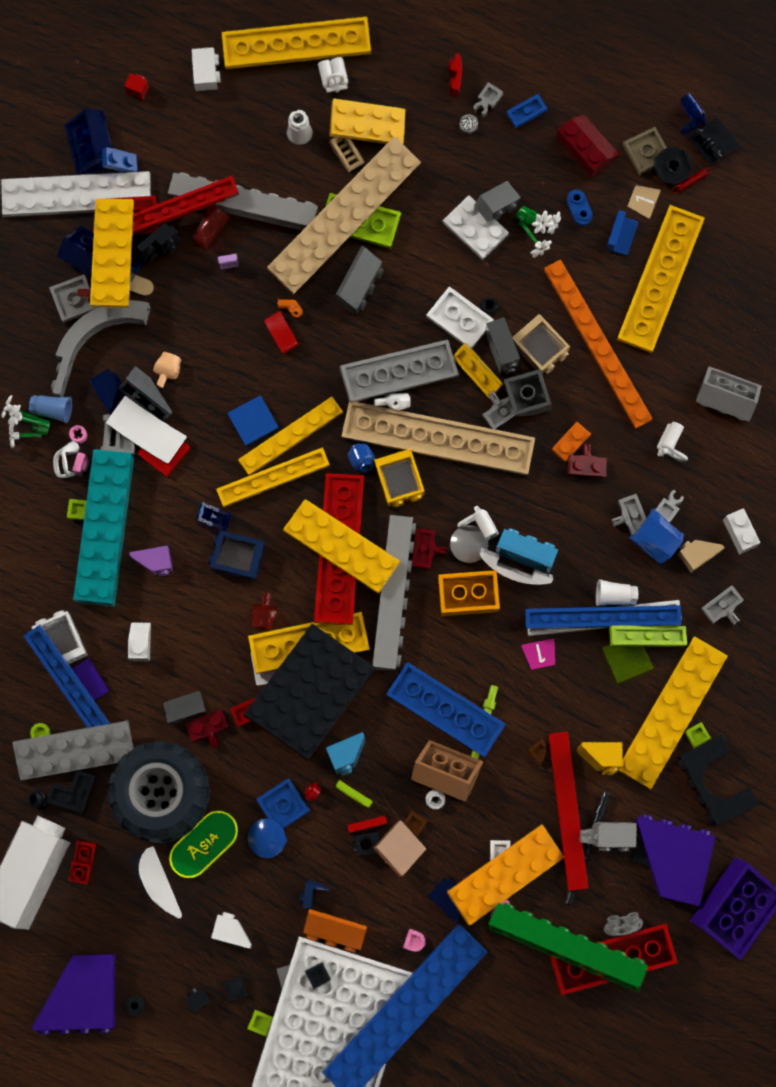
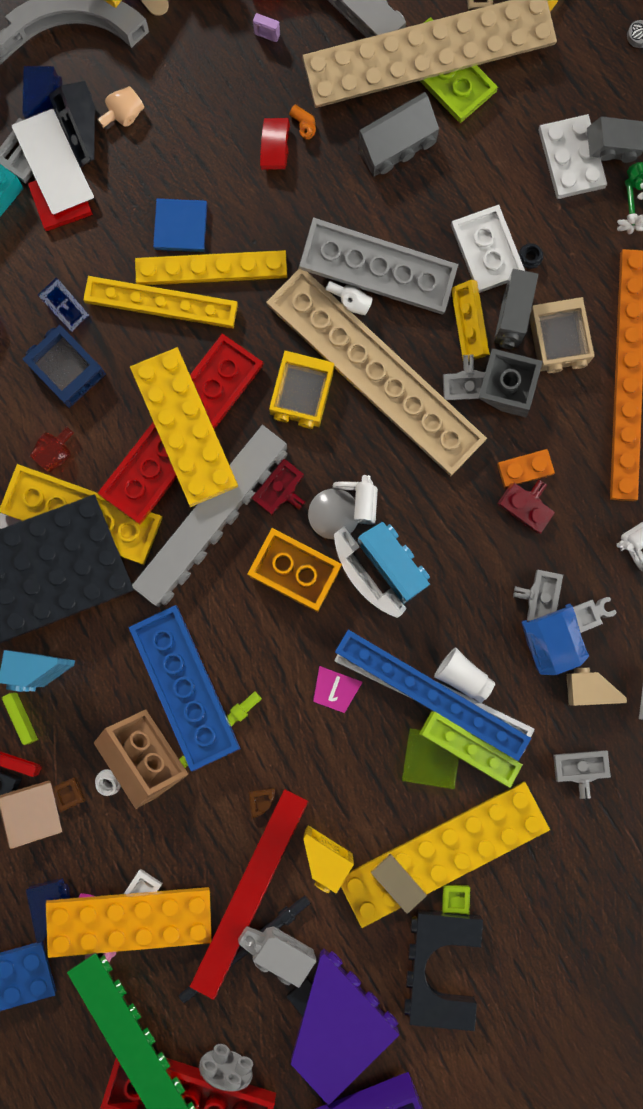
camera: 35 degrees right, 5 degrees up
(361, 457) = (273, 340): blue head -> none
(656, 745) = (398, 883): none -> dark tan tile

